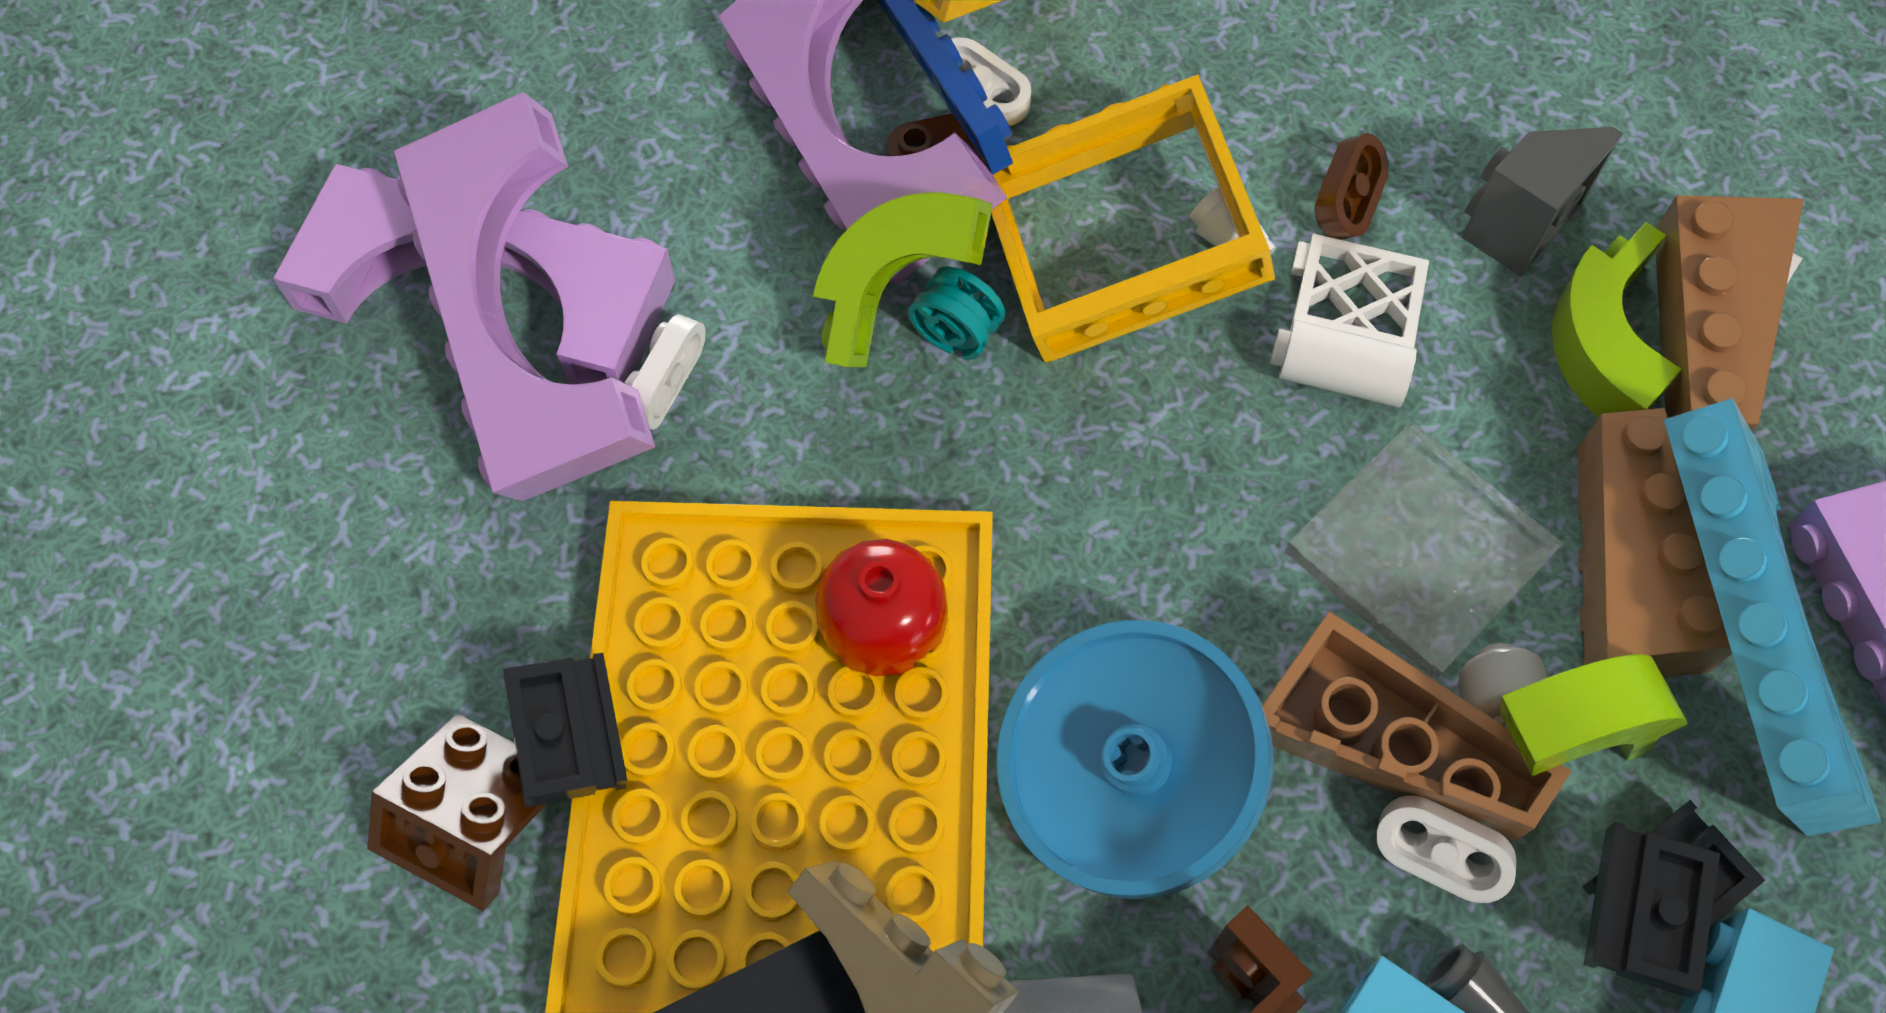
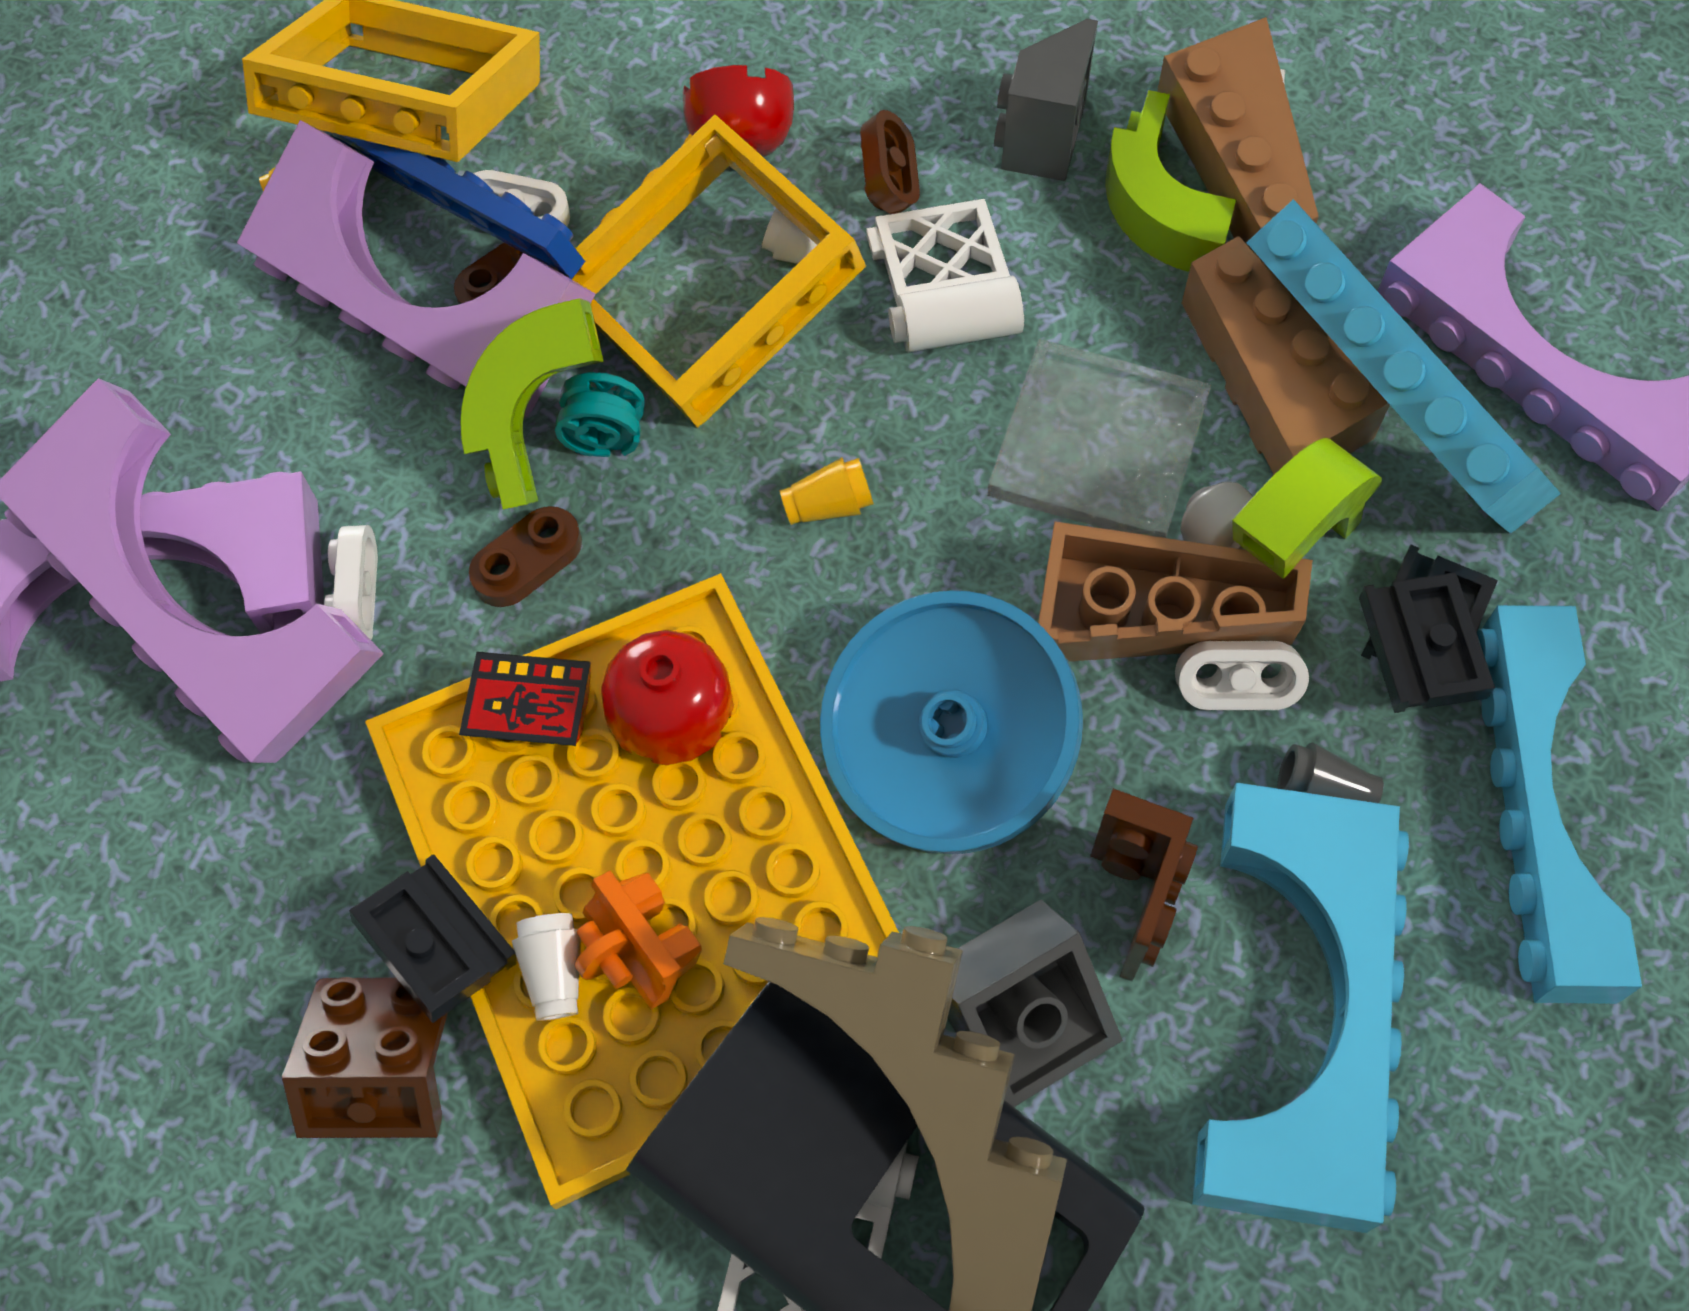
camera: 25 degrees left, 0 degrees up
(651, 805) = (547, 958): none -> white cone
(733, 791) = (625, 944): none -> orange hips
(757, 549) = (527, 698): none -> piece
(829, 415) = (529, 557): none -> reddish brown plate
(1133, 481) = (828, 493): none -> yellow cone
(1237, 81) = (750, 105): none -> red cylinder

